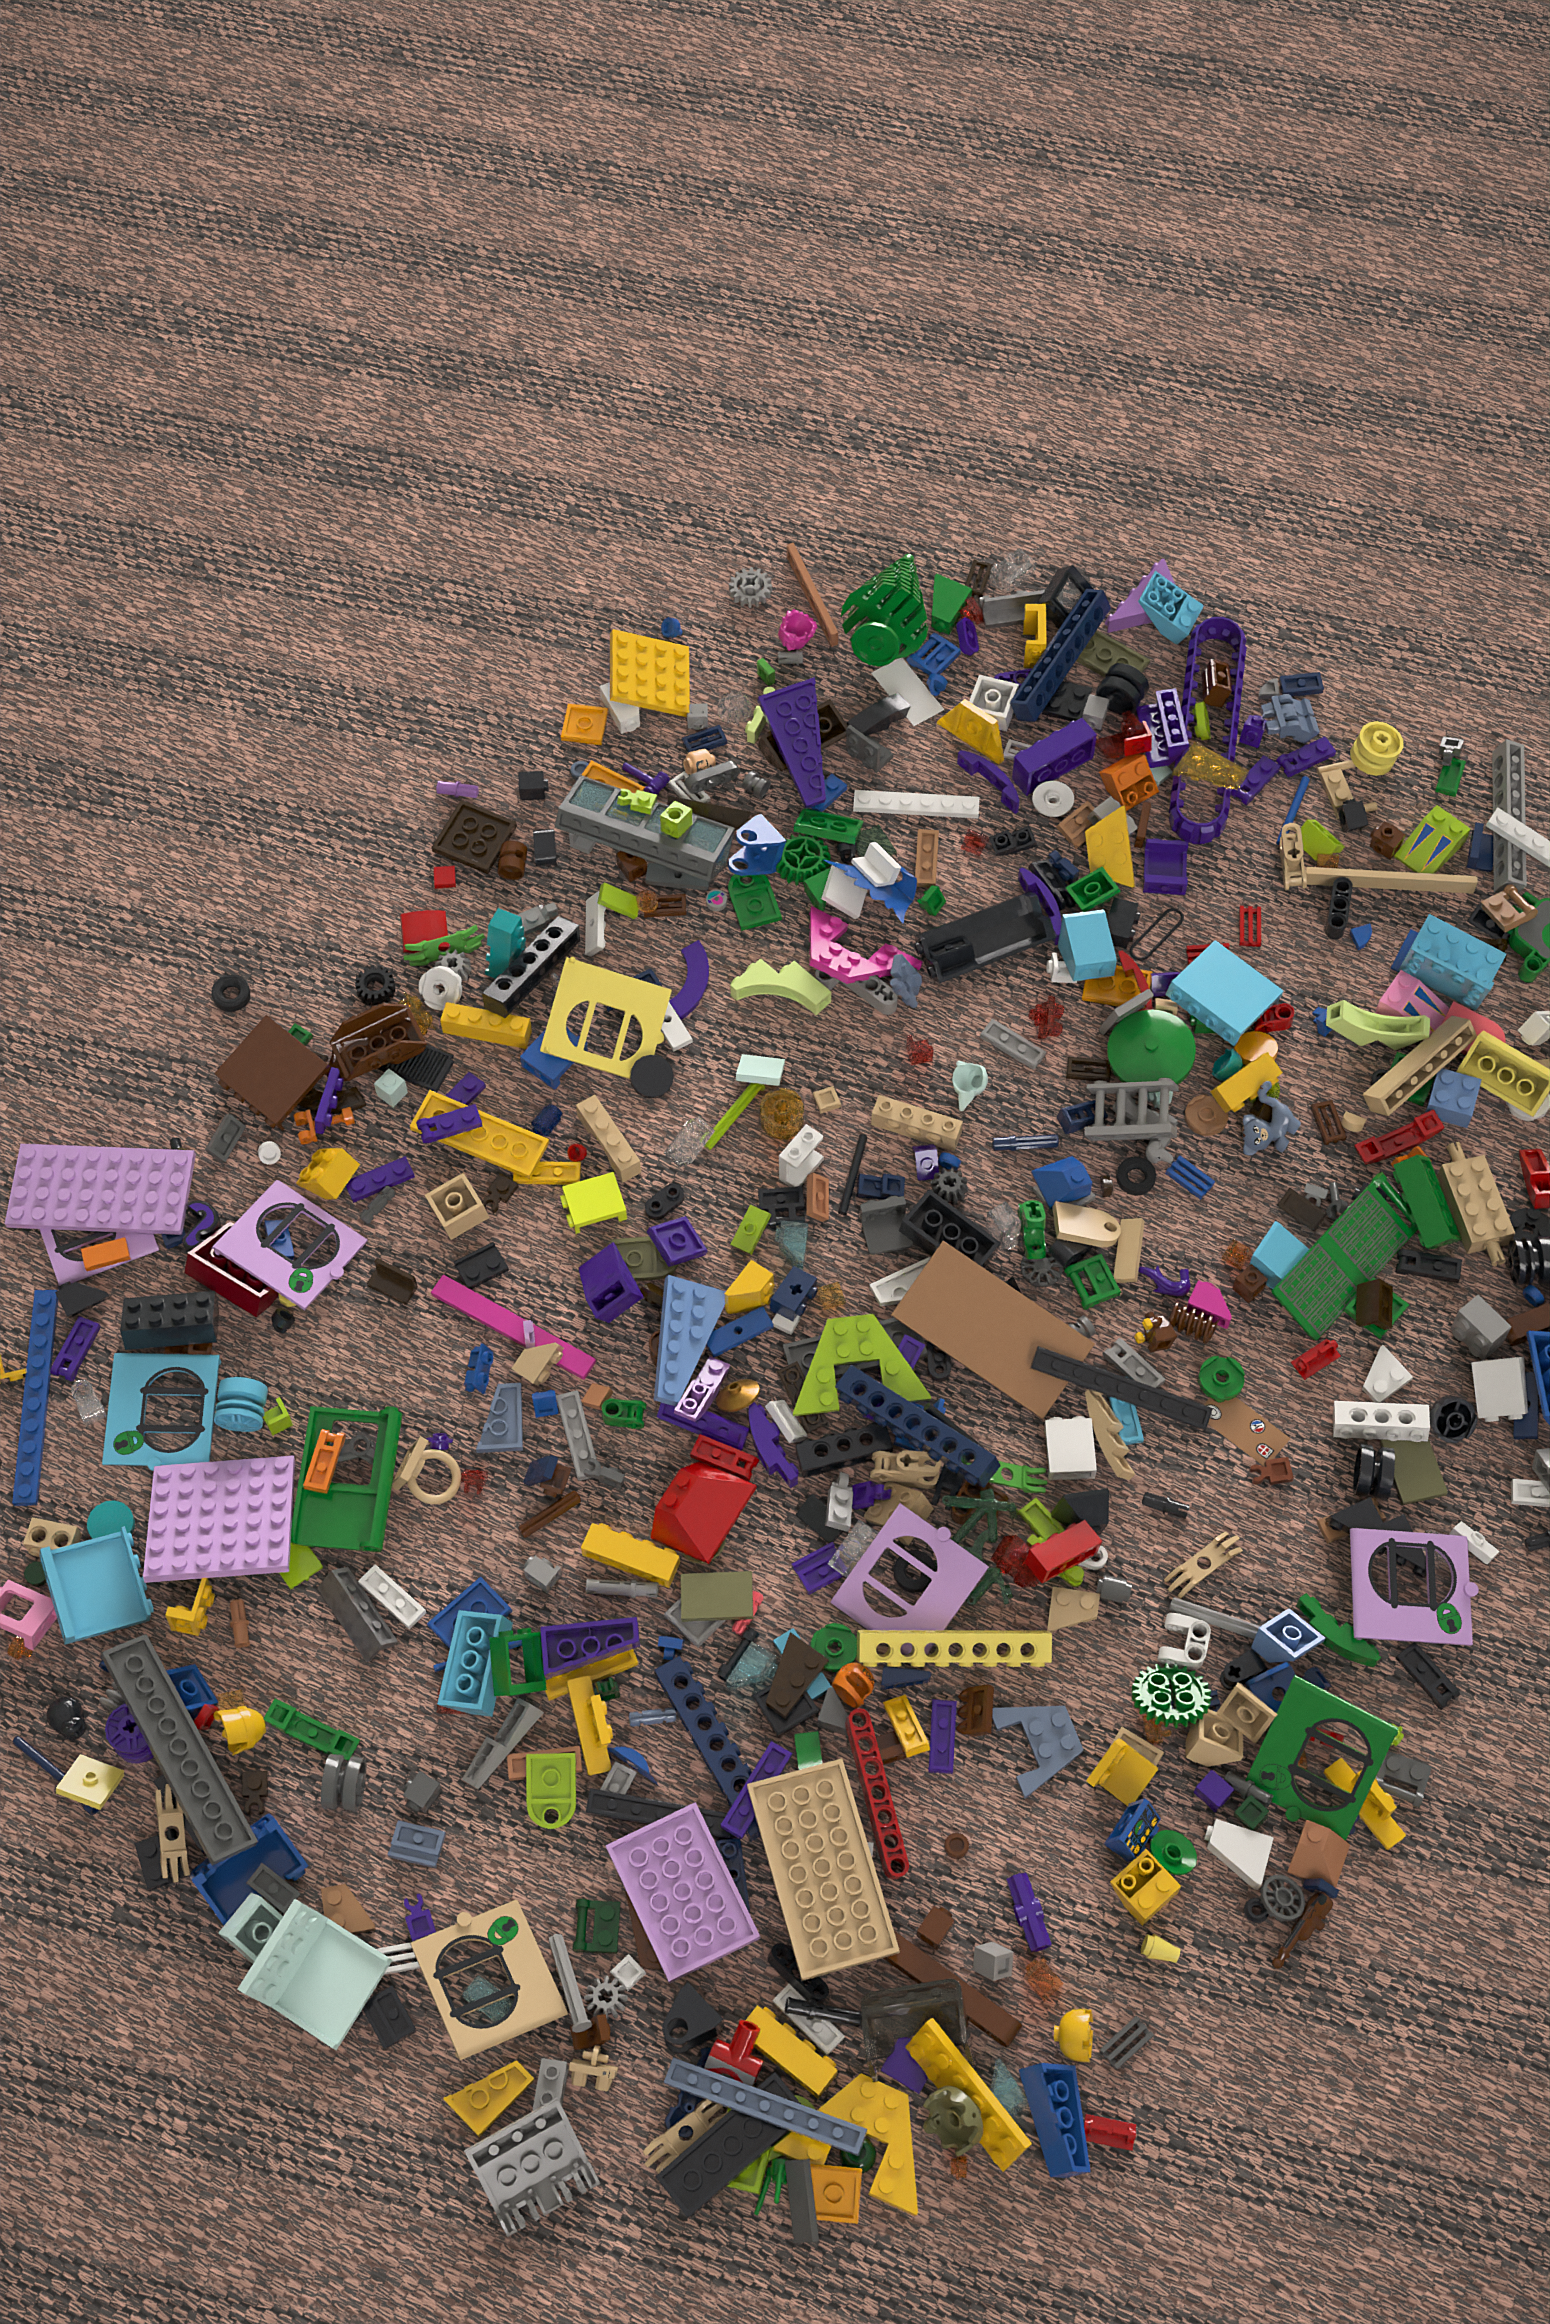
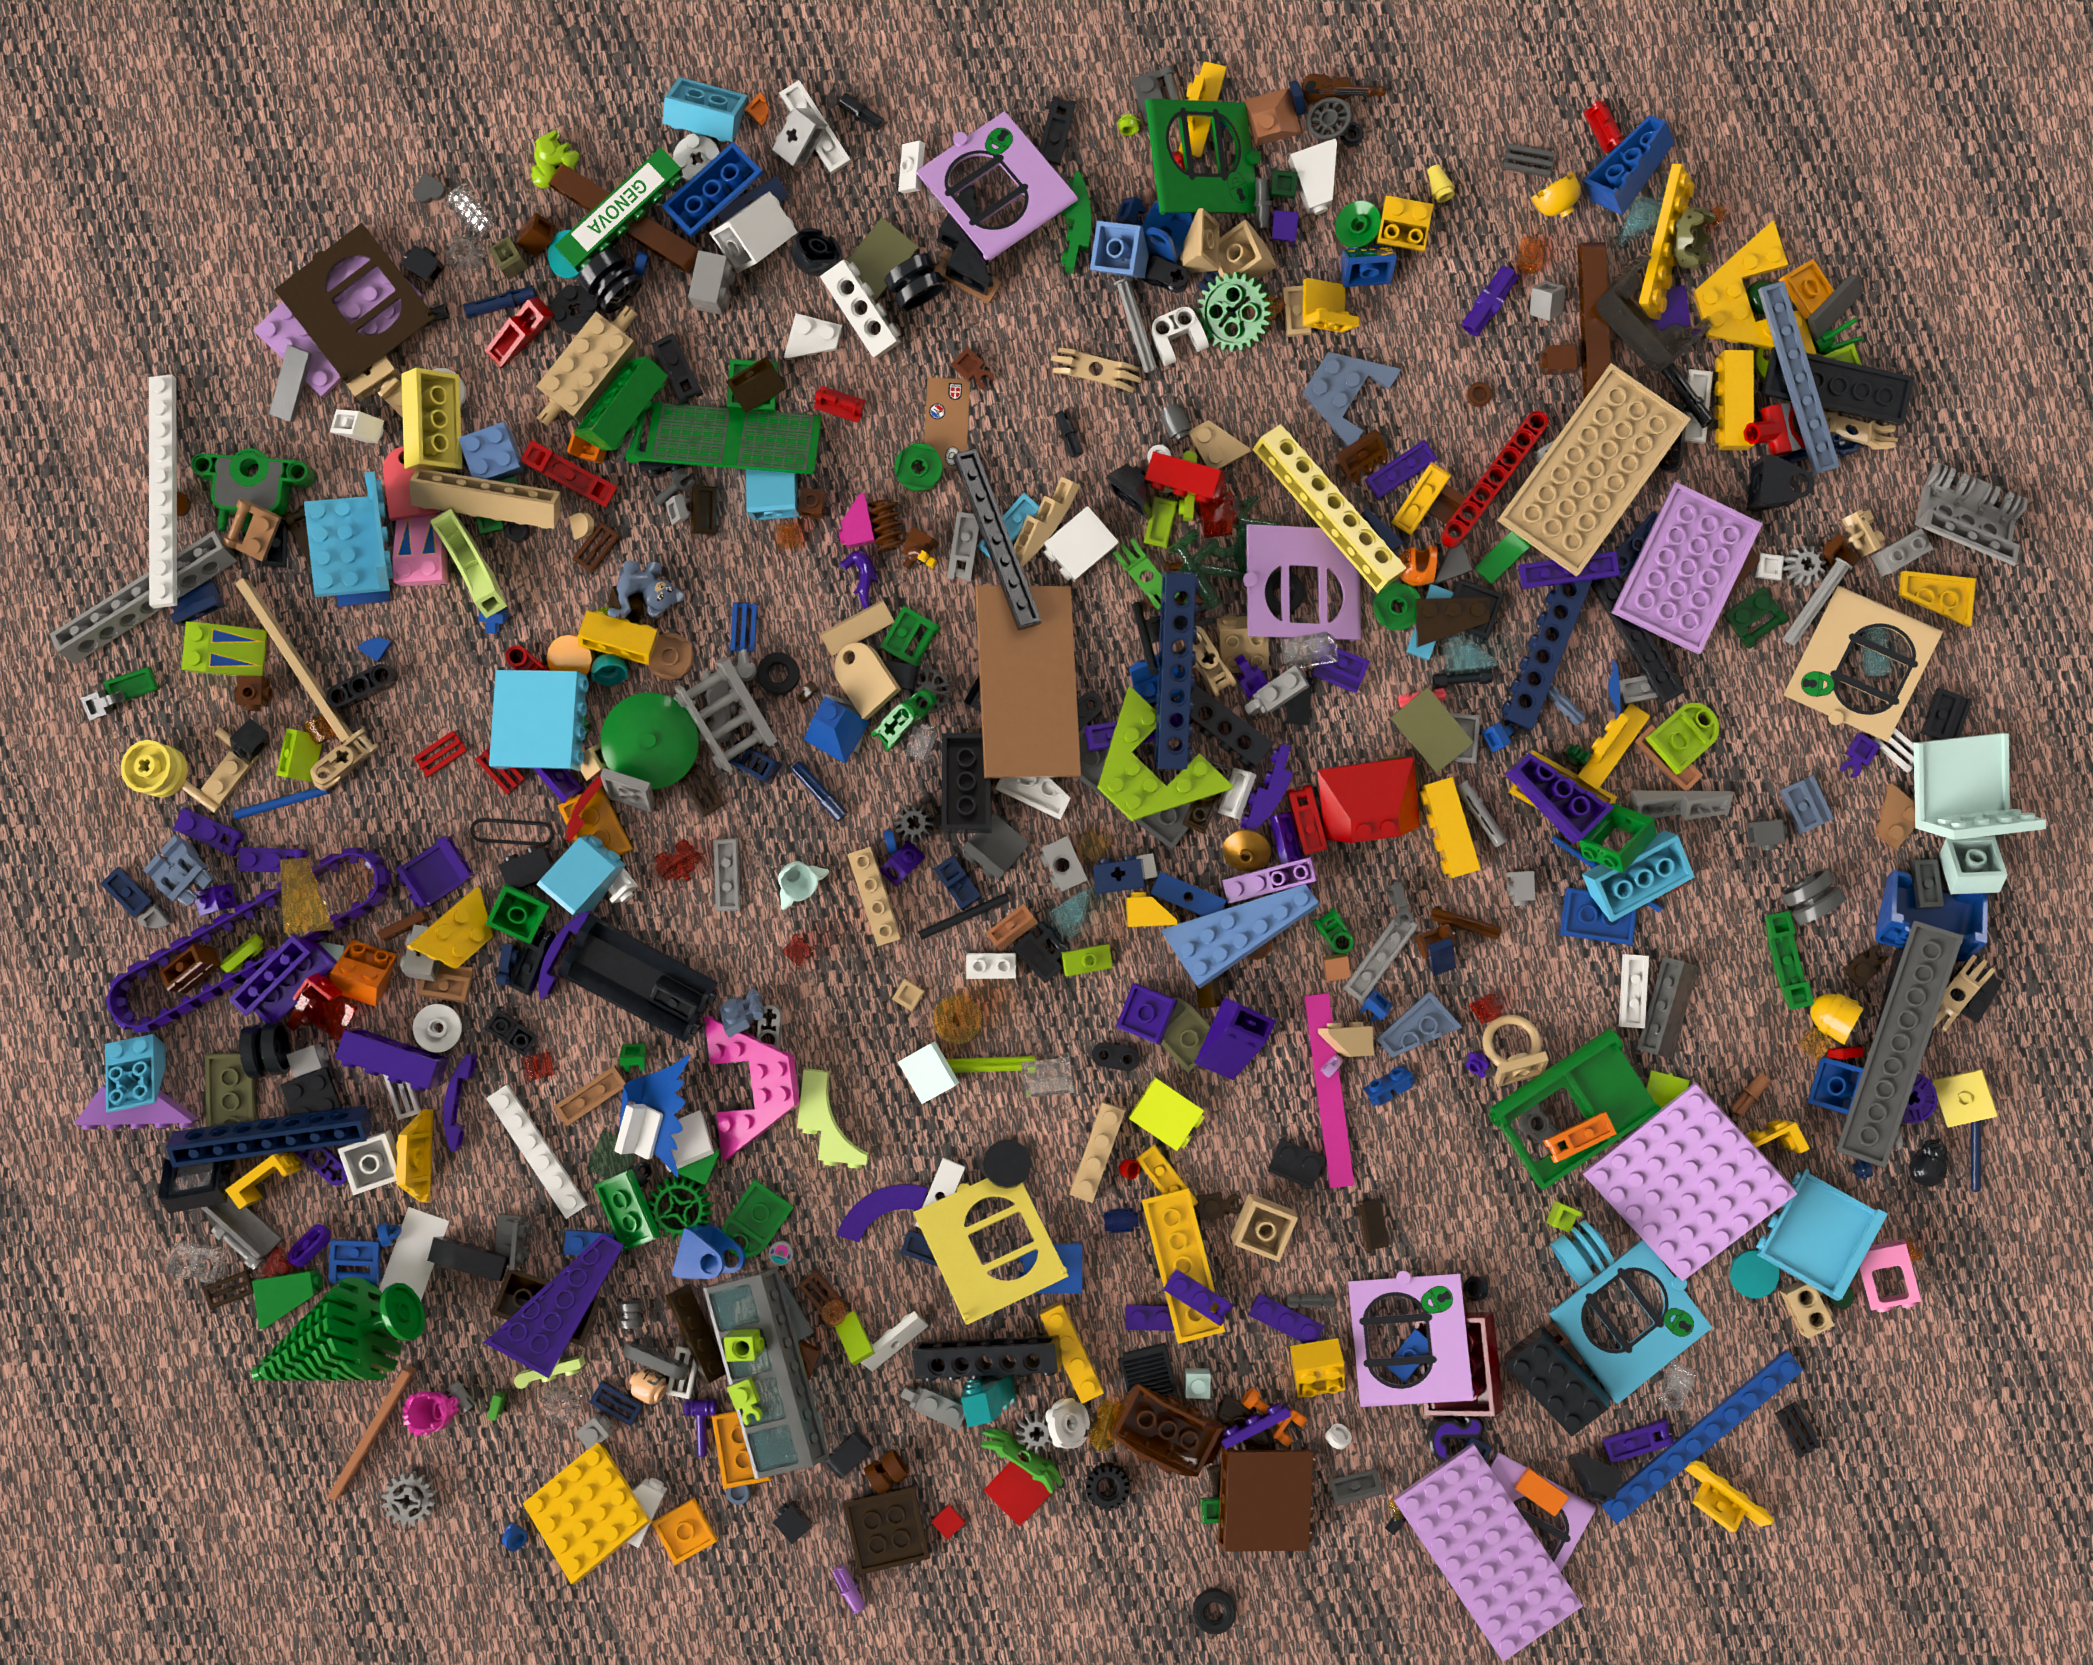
camera: 130 degrees left, 25 degrees up
(843, 1272) = (1063, 849): none -> light grey brick
(1084, 1327) = (961, 611): flat silver wheel -> none

